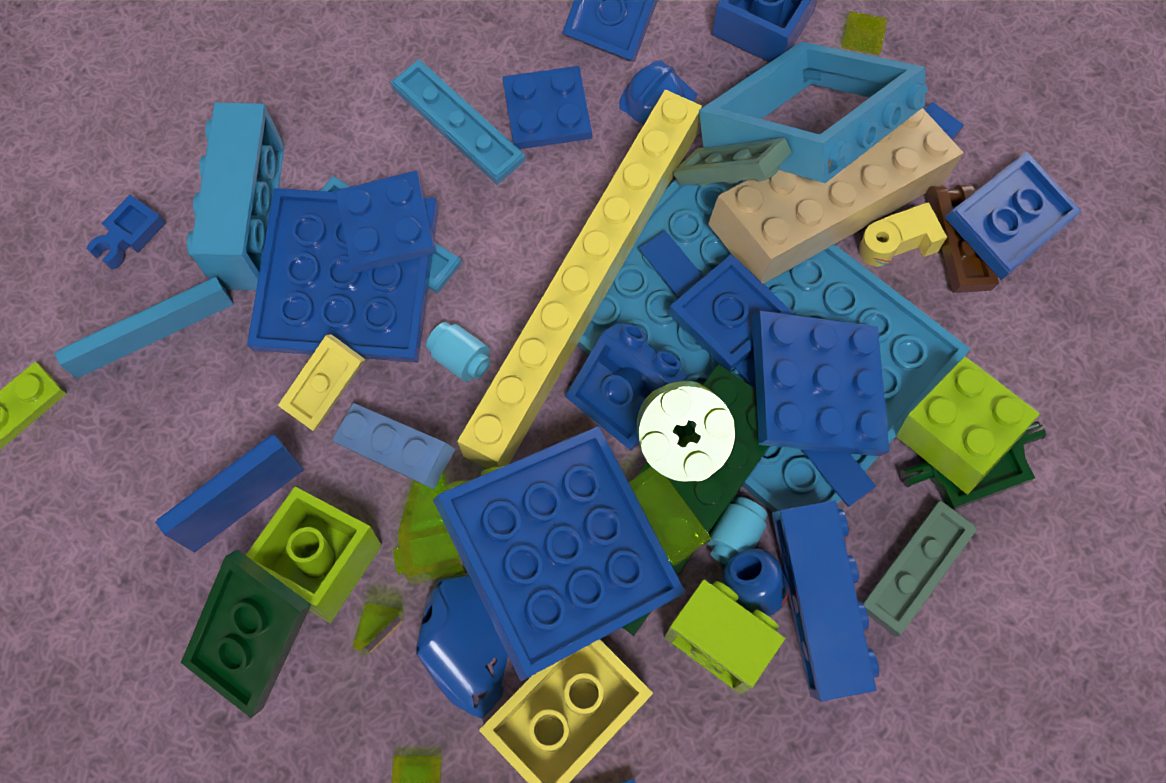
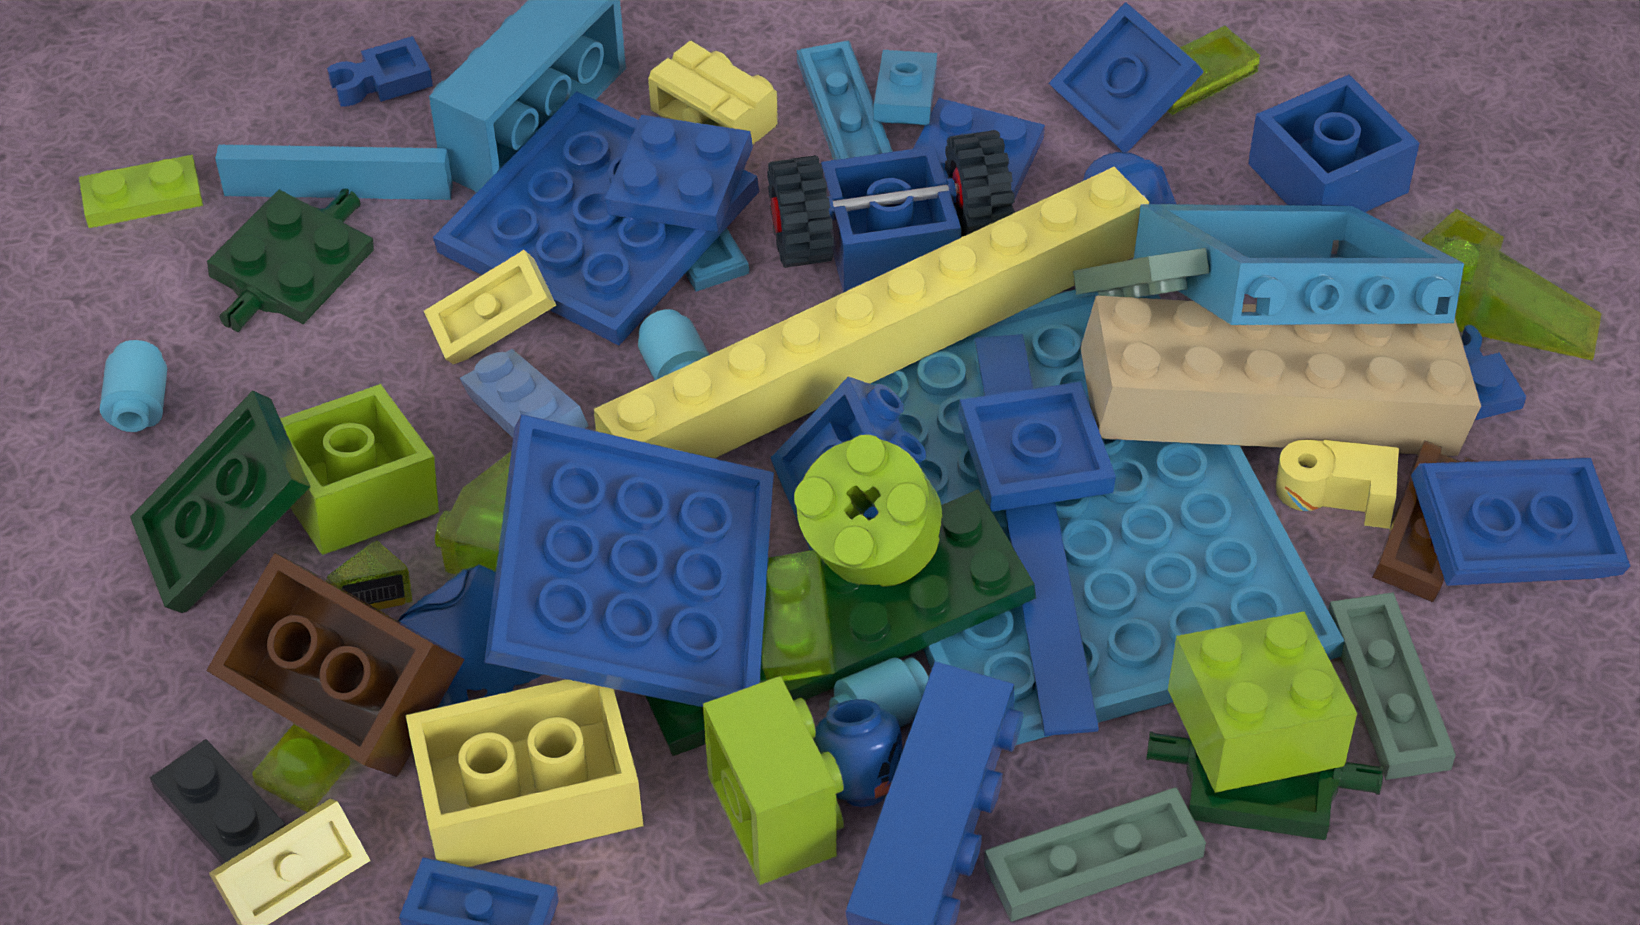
camera: 30 degrees right, 20 degrees down
(117, 565) = (133, 386): none -> medium azure brick
(156, 407) = (289, 257): none -> dark green plate
(230, 494) = (306, 358): blue tile -> none
(361, 146) = (712, 91): none -> light yellow brick
(401, 712) = (333, 664): none -> reddish brown brick
(477, 78) = (905, 87): none -> dark azure plate
(536, 180) = (887, 205): none -> brick
(819, 385) = (1094, 569): blue plate -> none
(944, 61) = (1517, 304): none -> clear neon green slope
(1008, 360) = (1391, 687): none -> sand green plate

